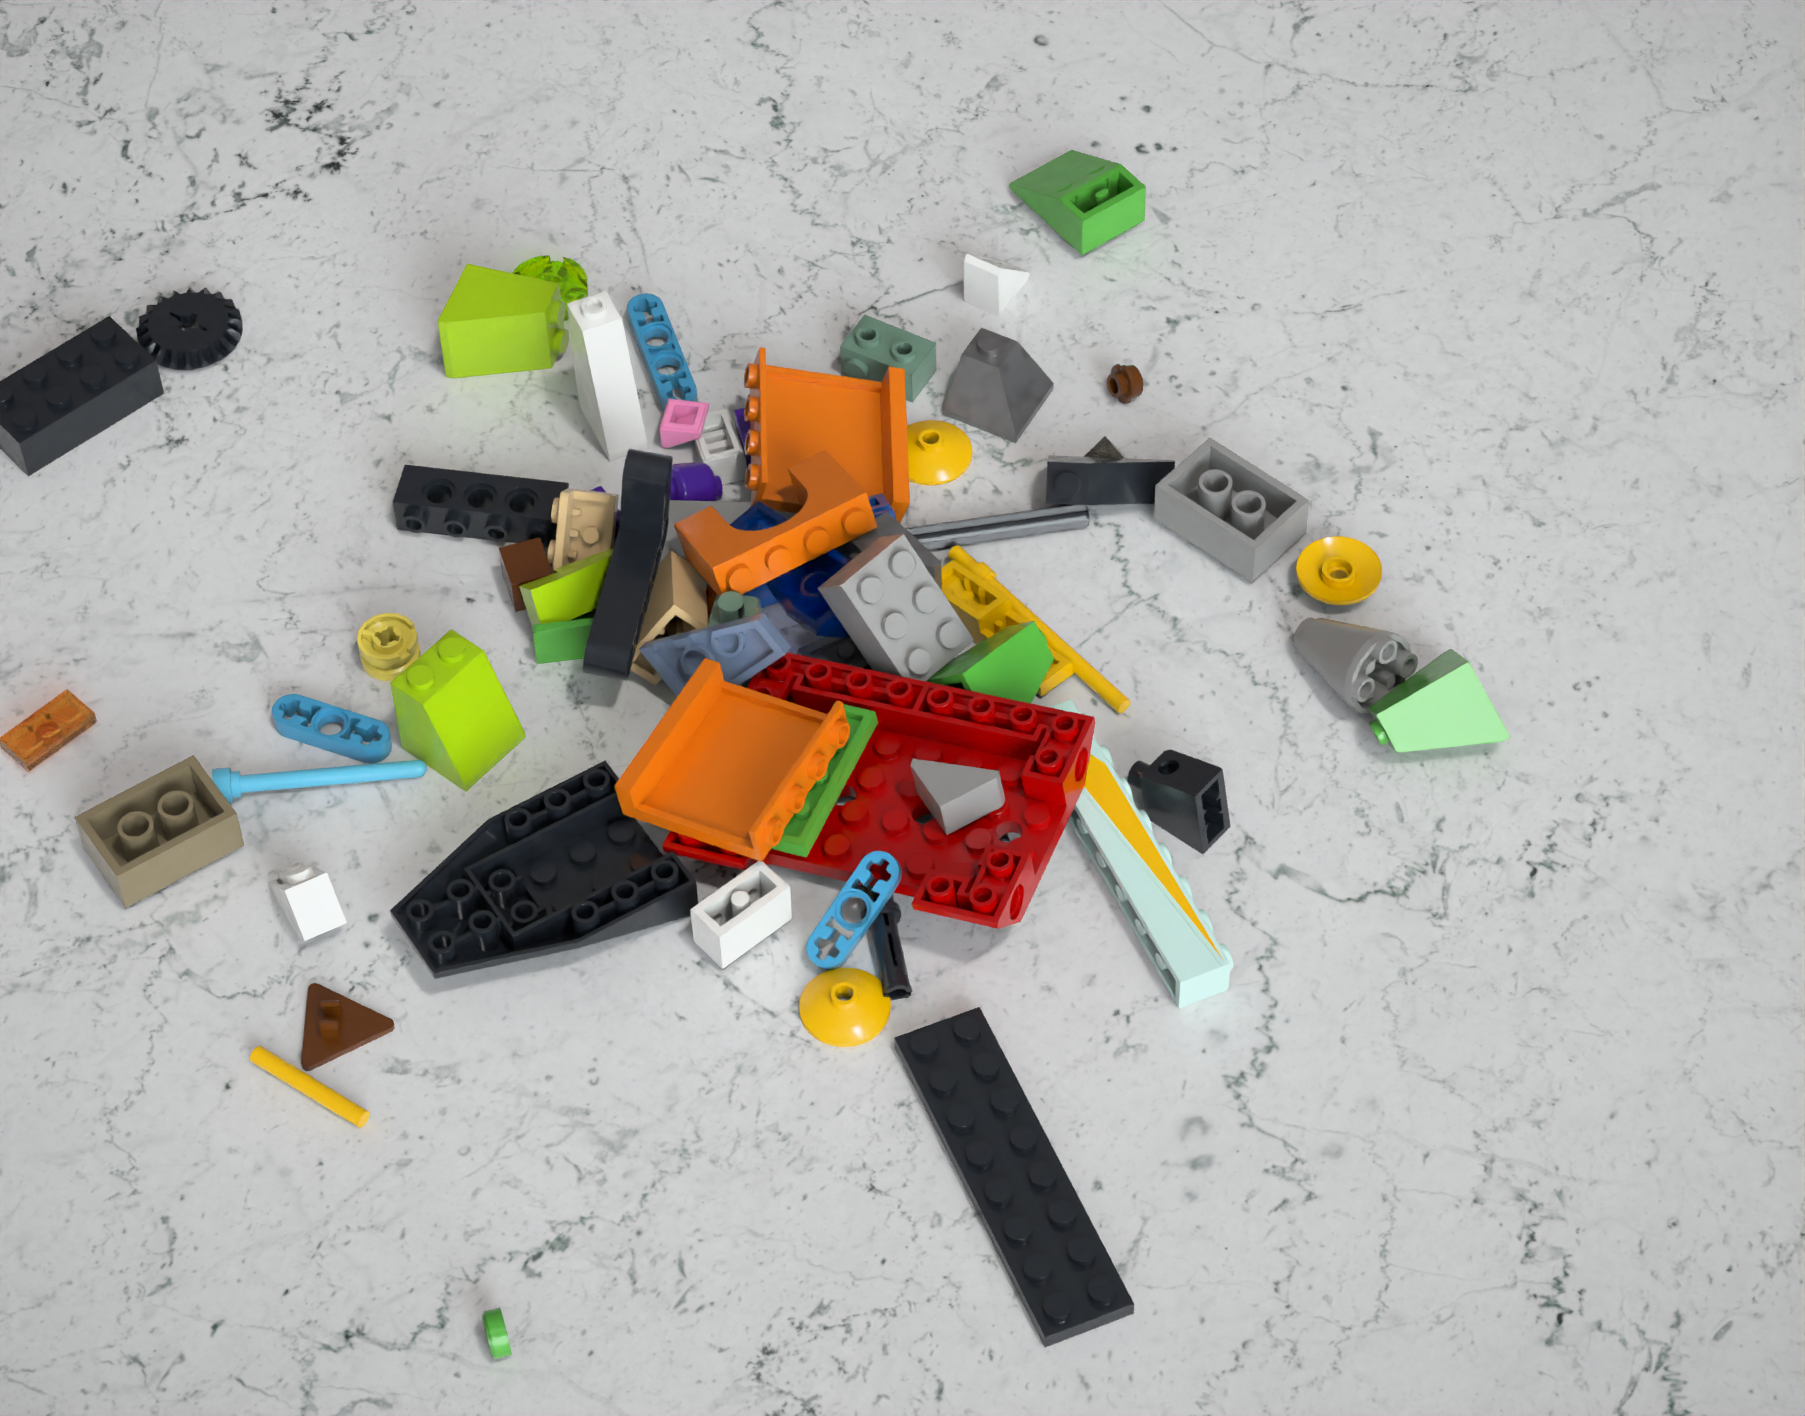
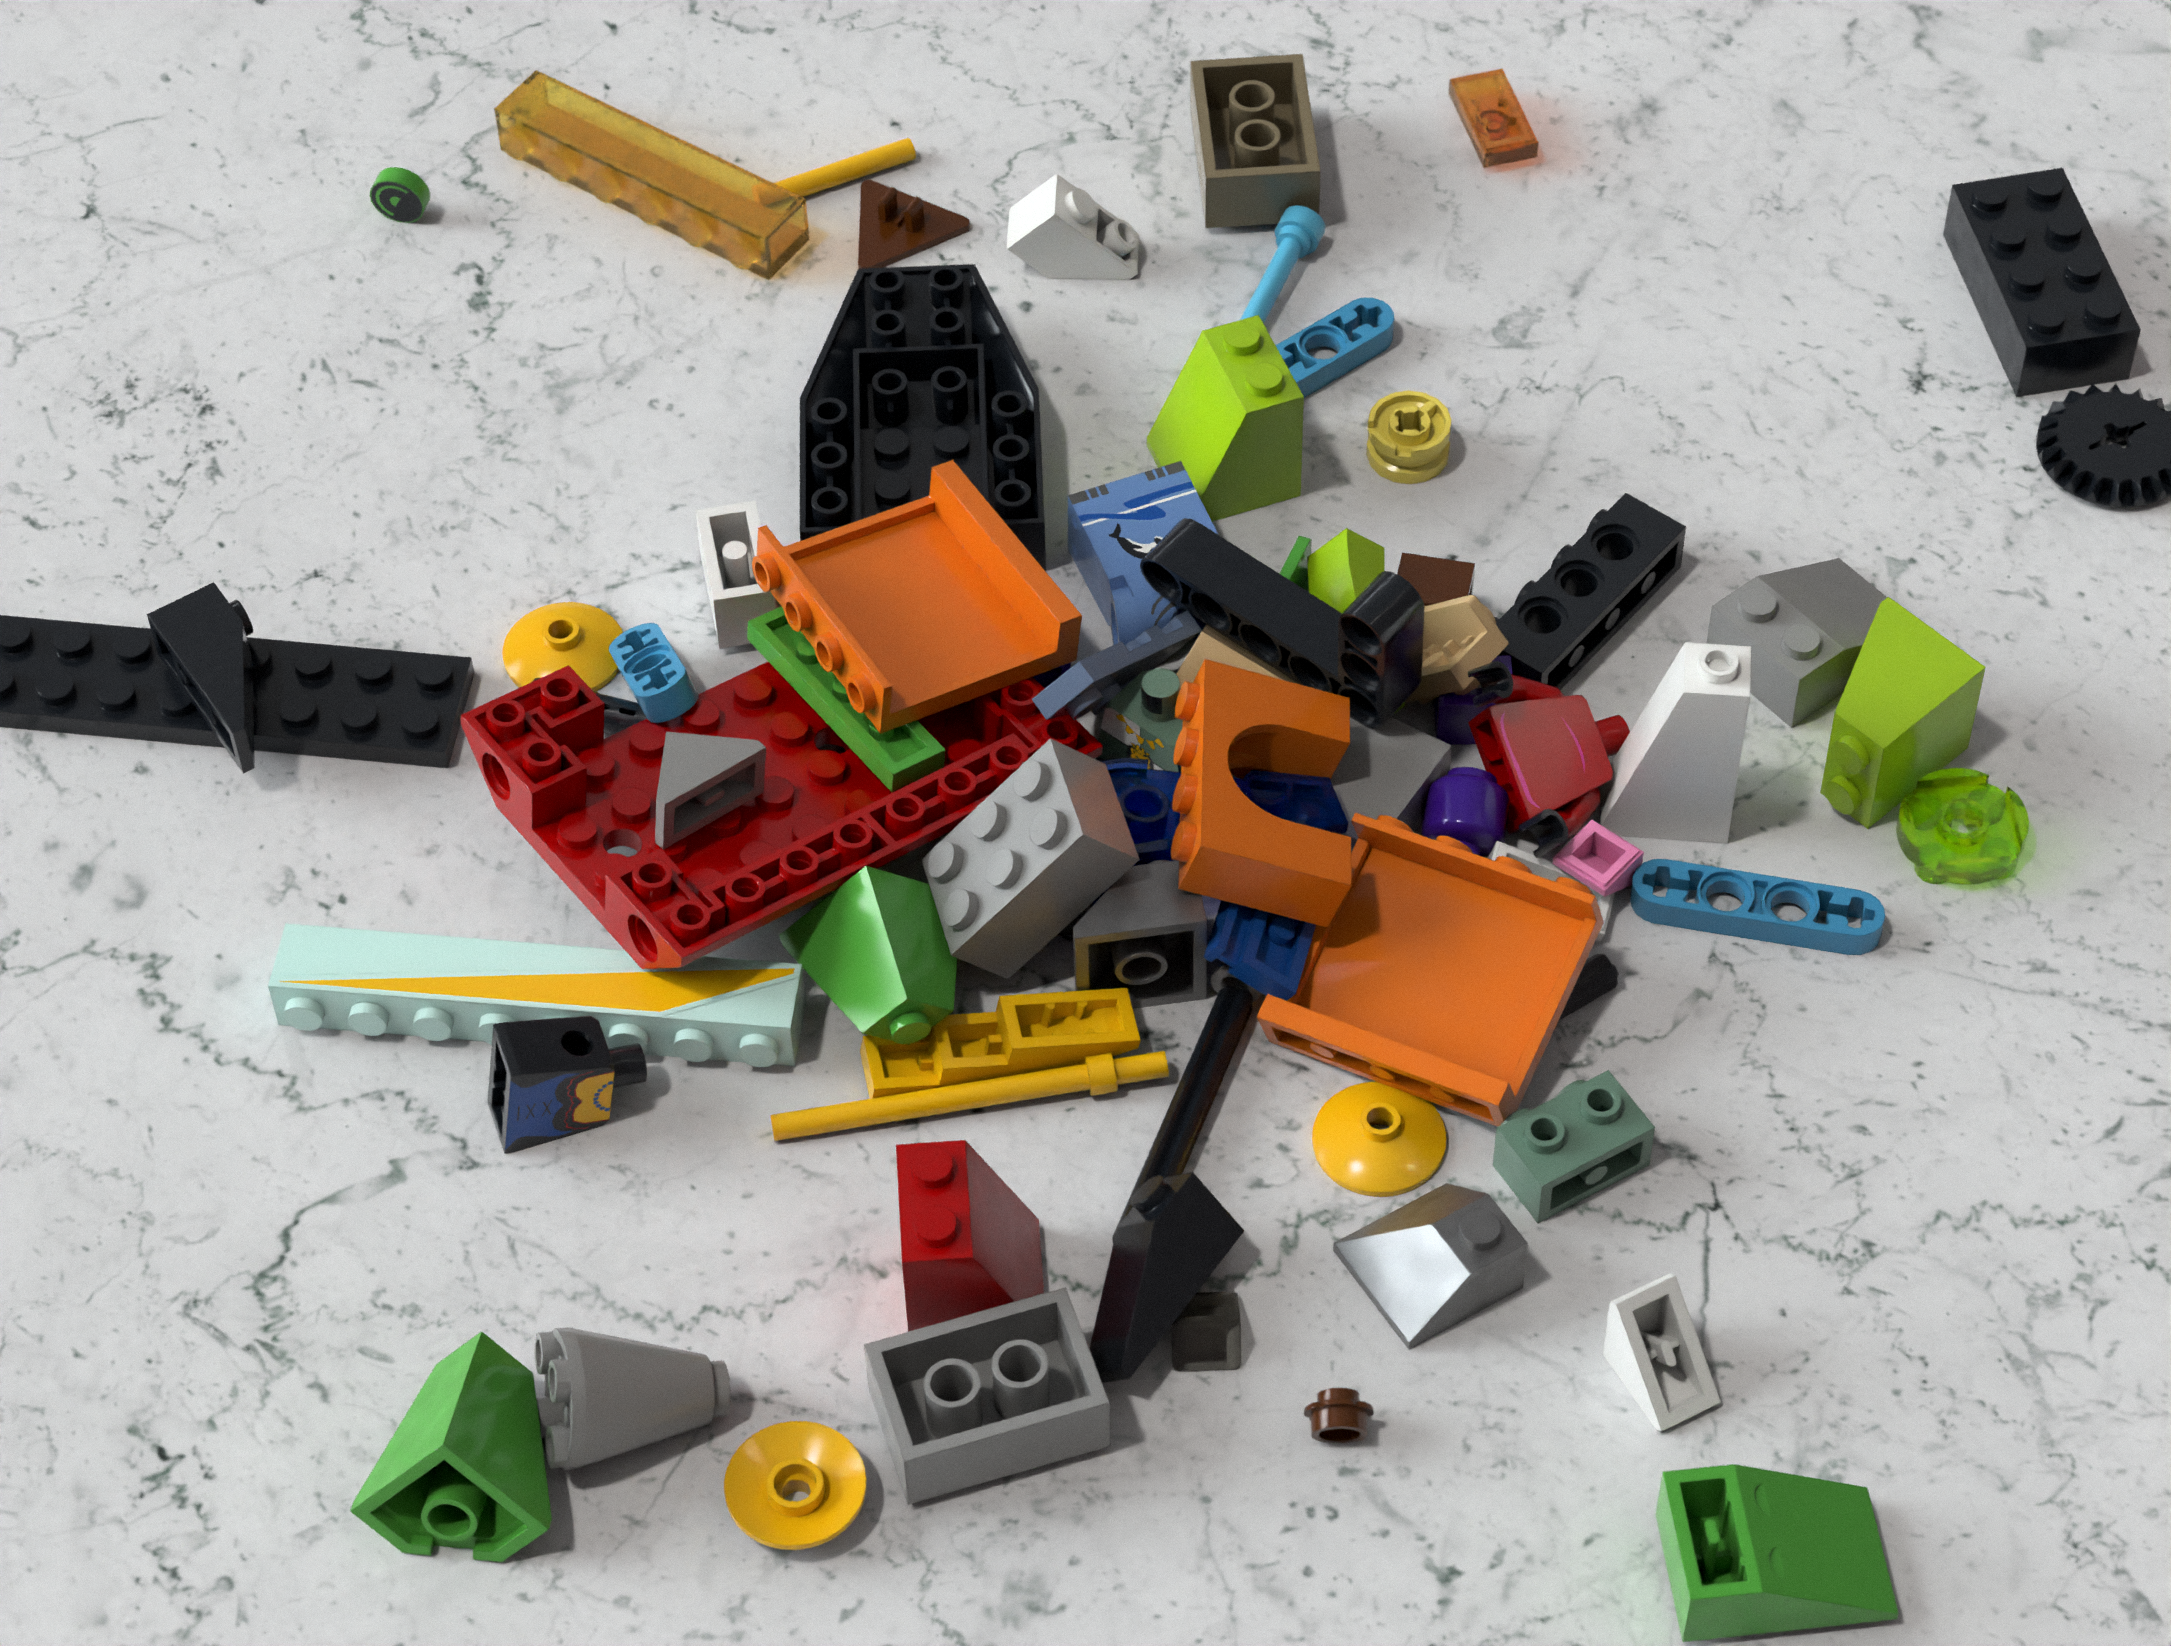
camera: 120 degrees right, 0 degrees up
(384, 1186) = (652, 175): none -> clear yellow brick
(442, 400) = (1801, 633): none -> light grey slope
(586, 717) = (1116, 529): none -> medium blue piece
(607, 451) = (1543, 752): none -> red torso
(1018, 1137) = (210, 658): none -> black slope
(1162, 556) = (962, 1235): none -> red slope

